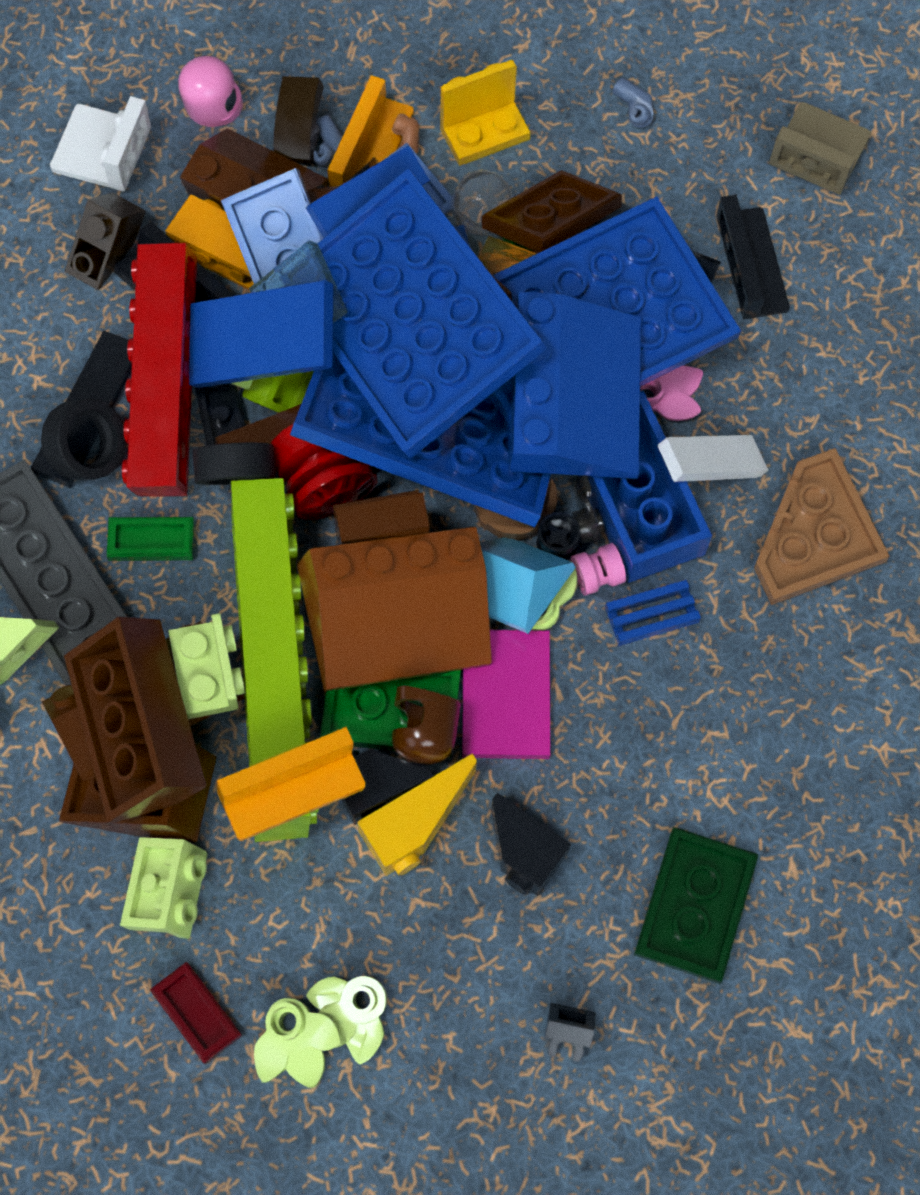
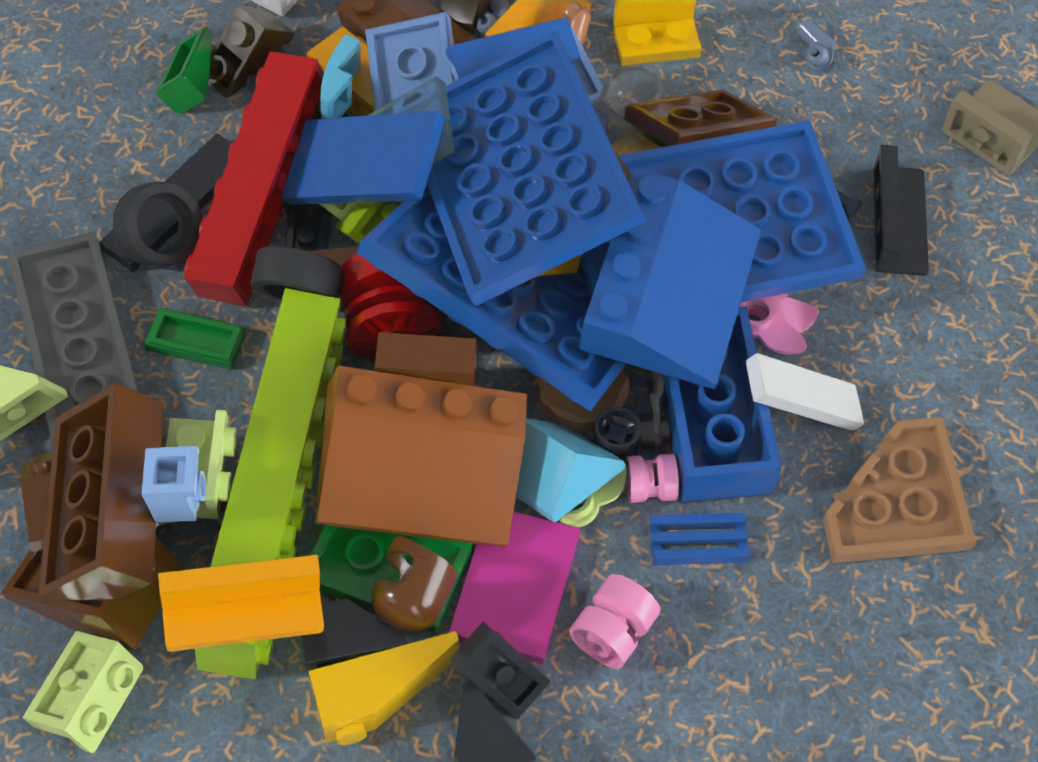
camera: 15 degrees right, 10 degrees down
(55, 276) = (188, 73): none -> green slope
(200, 694) = (173, 483): none -> light blue brick
(209, 259) = (338, 76): none -> medium azure slope
(519, 777) = (499, 670): none -> black slope
(604, 701) = (618, 615): none -> bright pink wheel

